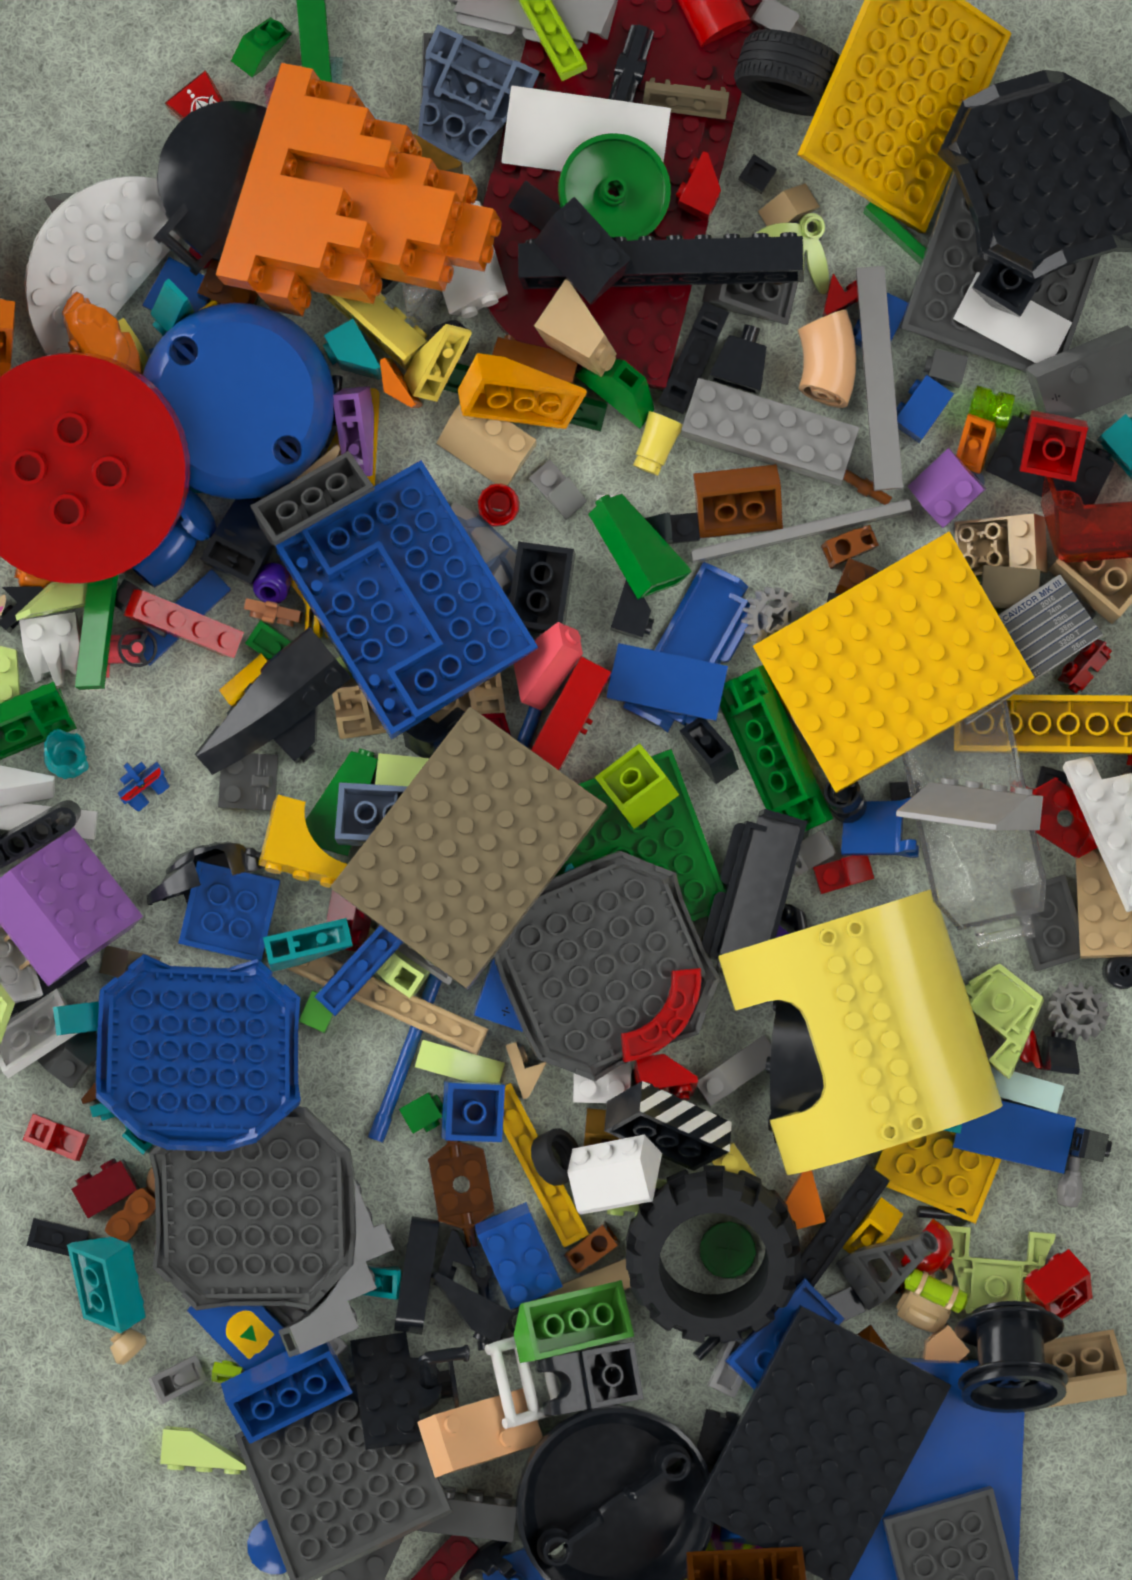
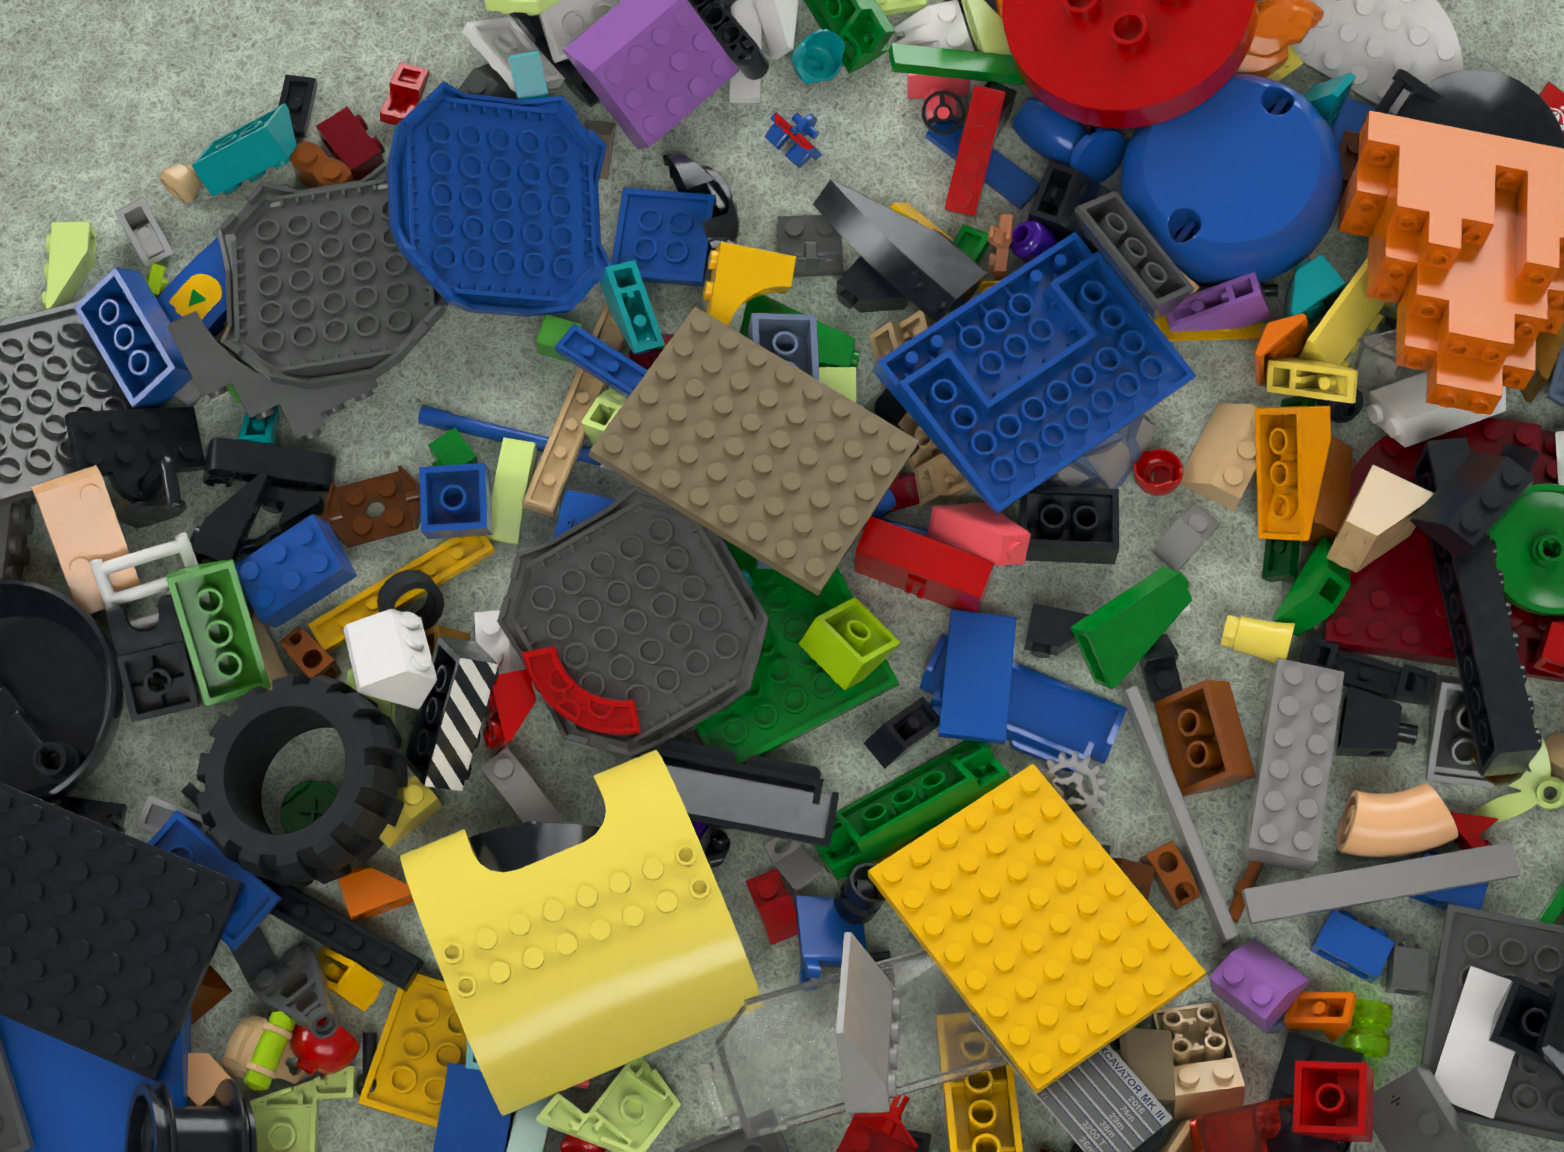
camera: 85 degrees right, 15 degrees down
(525, 1076) = (499, 563): tan slope -> none

